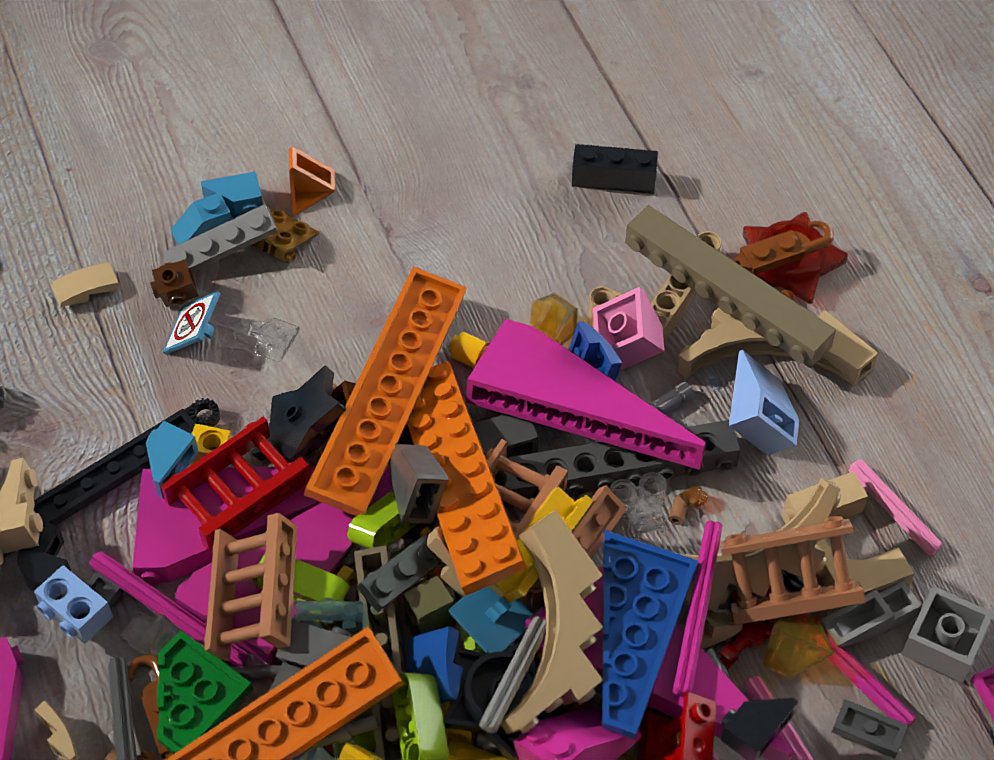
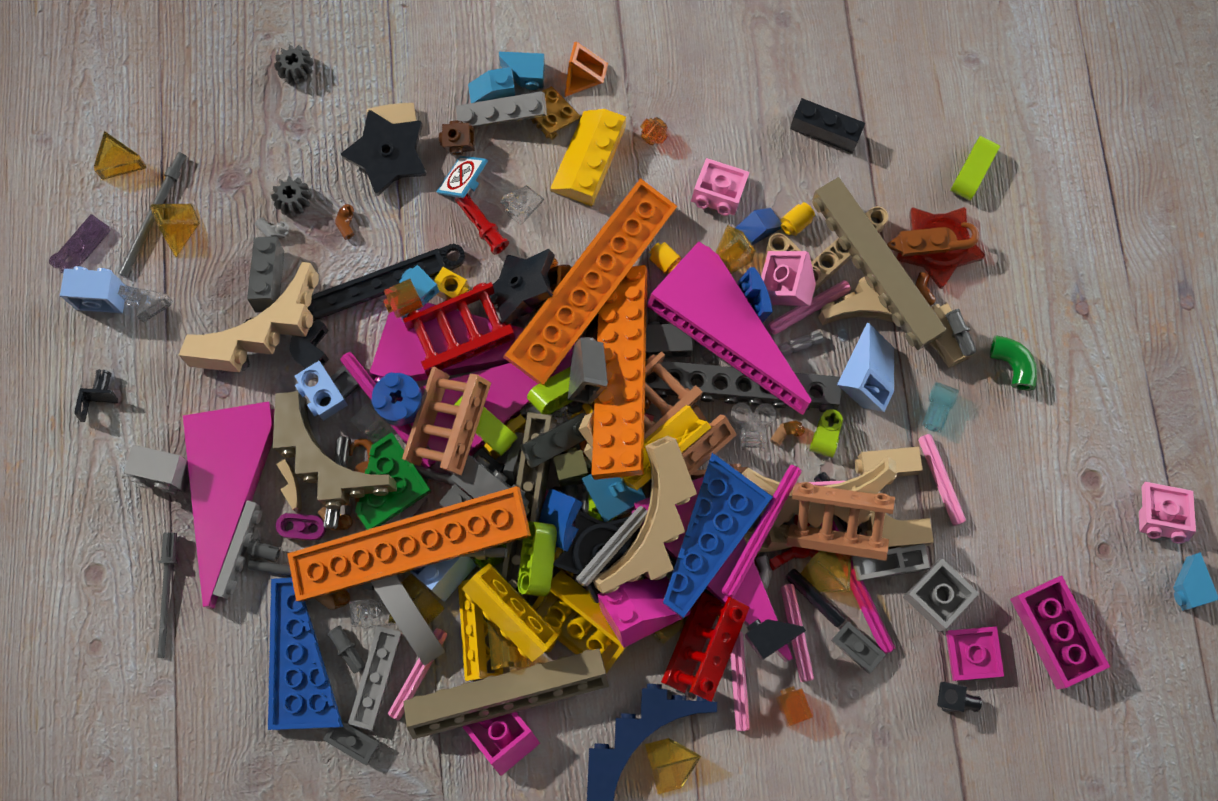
camera: 15 degrees right, 20 degrees up
(53, 408) = (343, 221): none -> dark orange arm
(85, 694) = (295, 439): none -> dark tan arch
(89, 319) = (391, 166): none -> black plate
(156, 458) = (402, 299): none -> clear orange brick
(179, 582) = (392, 387): none -> blue brick
(240, 375) = (487, 230): none -> red pin
(328, 611) = (495, 456): clear light blue pin -> none
(342, 266) = (589, 155): none -> yellow slope
(412, 221) = (654, 131): none -> clear orange gear
(510, 261) = (719, 187): none -> bright pink plate
(573, 286) = (759, 225): none -> blue slope
(615, 270) = (797, 219): none -> yellow brick
(664, 360) = (817, 303): none -> bright pink axle
(736, 492) = (826, 437): none -> lime piece
(793, 685) = (815, 597): none -> black axle
(800, 171) = (975, 168): none -> lime beam
(853, 333) = (961, 332): none -> dark grey axle
(860, 420) = (941, 402): none -> clear light blue piece
(933, 351) = (1019, 359): none -> green cylinder

